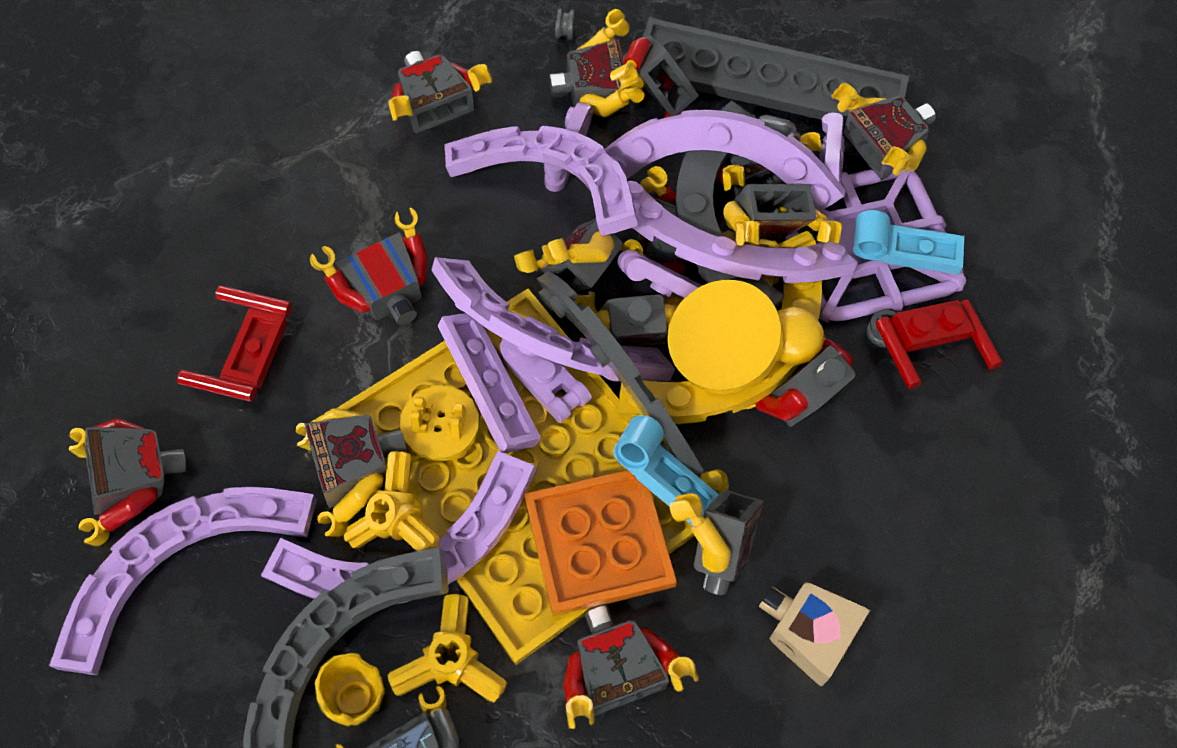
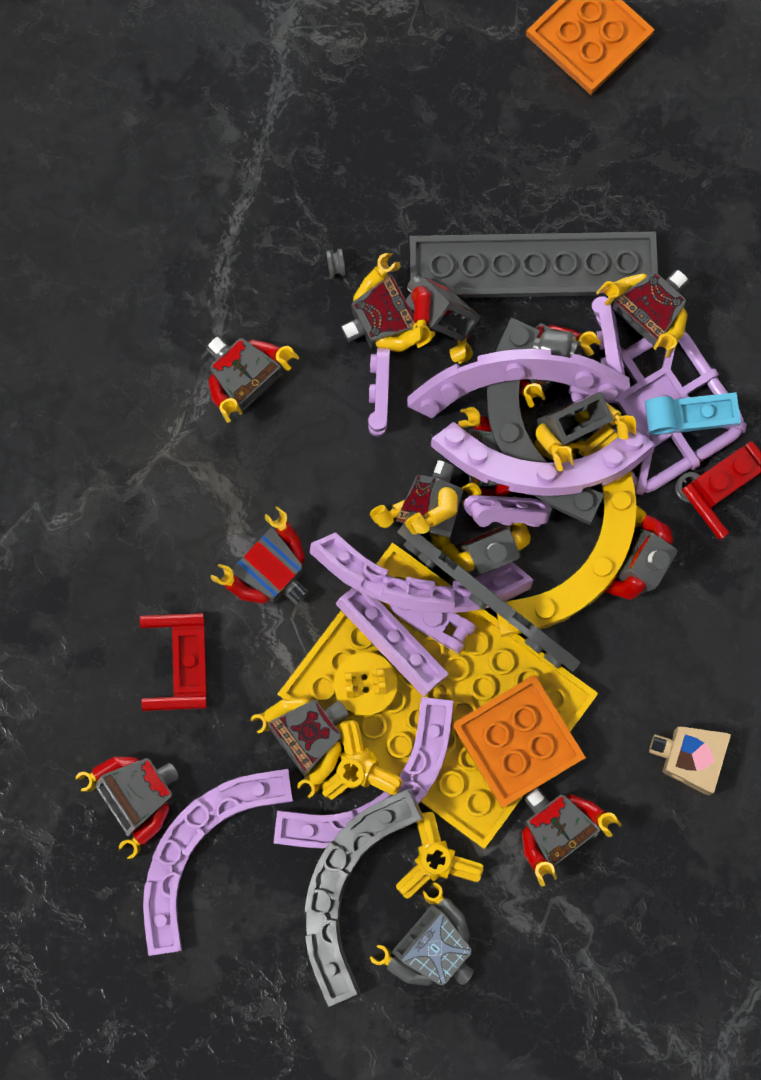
camera: 15 degrees left, 15 degrees up
(349, 689) = (373, 905): yellow hair -> none
(557, 147) = (383, 411): lavender plate -> none
(655, 467) = (554, 678): medium azure plate -> none
(723, 531) = (611, 704): torso -> none
(725, 336) = (568, 550): yellow piece -> none
(801, 337) = (620, 531): yellow hair -> none

